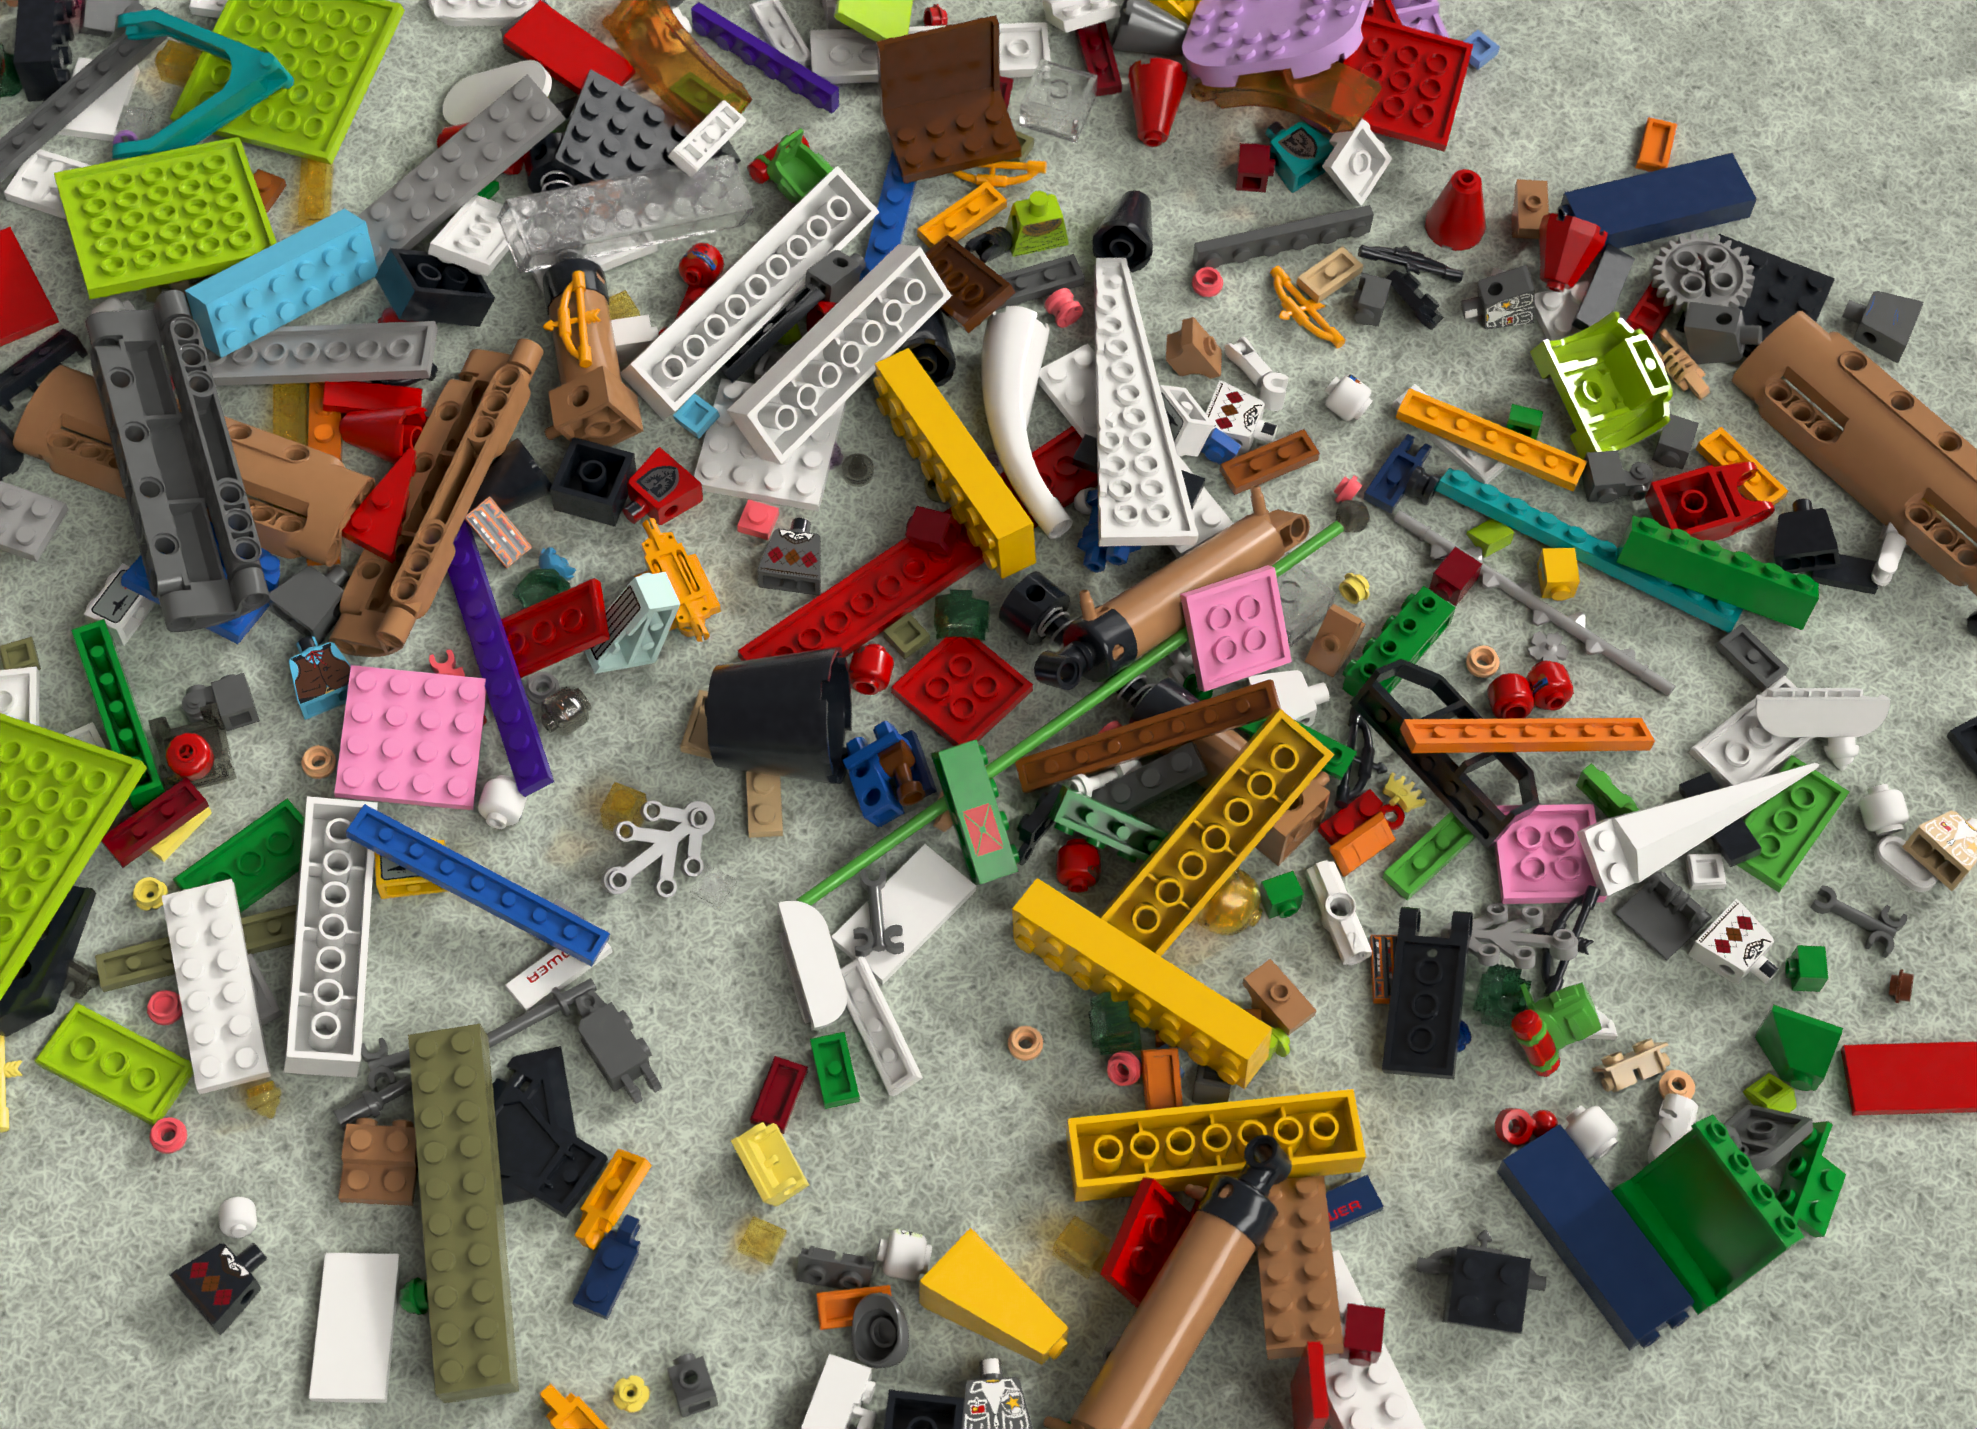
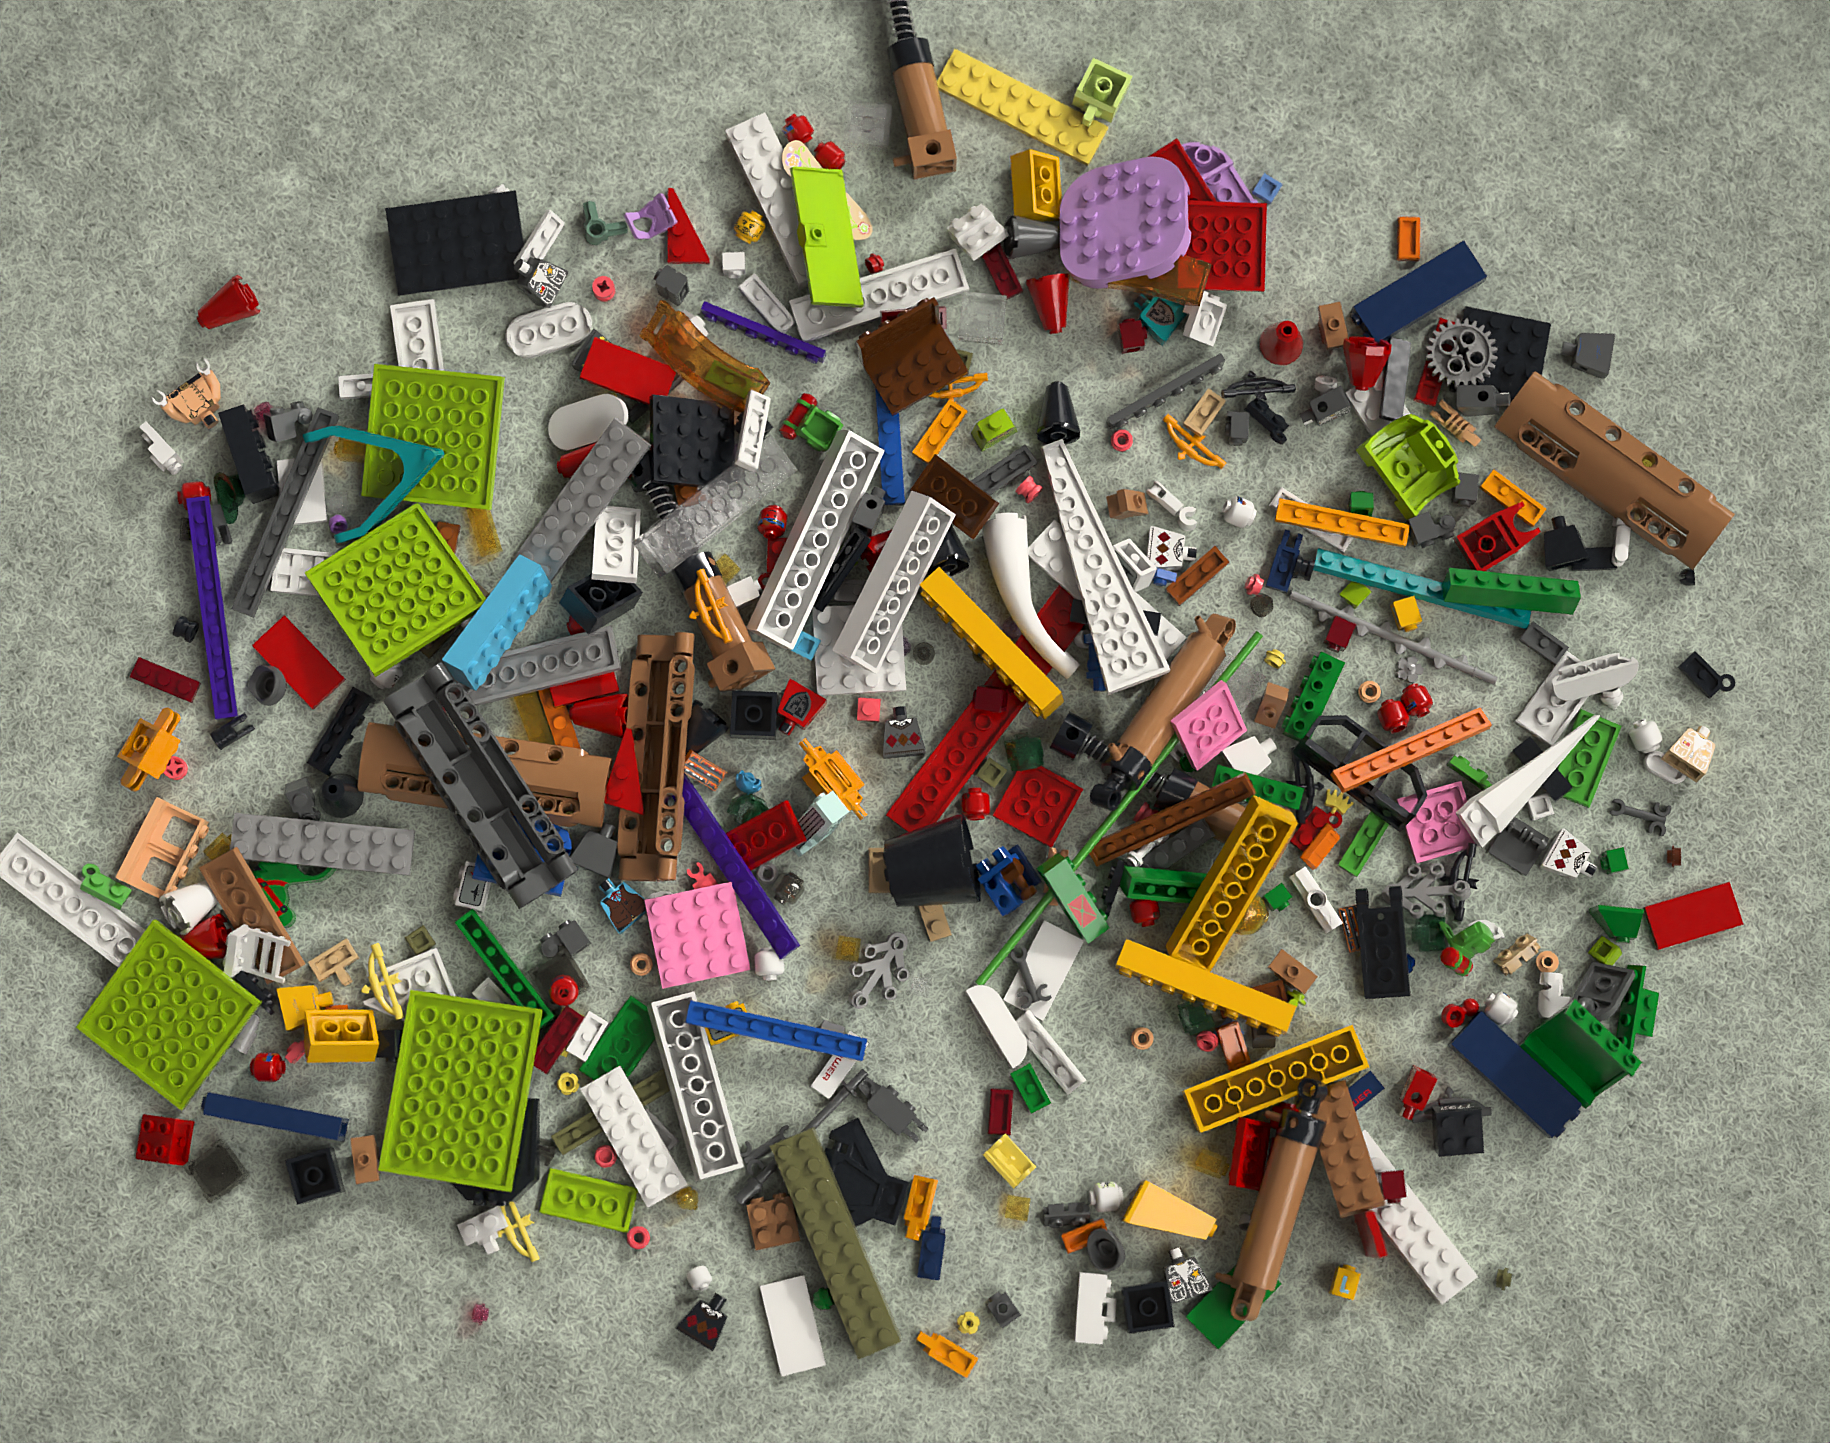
camera: 15 degrees left, 20 degrees up
(201, 834) = (586, 1036): none -> white plate
(984, 244) = (967, 453): black hinge -> none
(1441, 1206) = (1419, 1082): none -> red torso

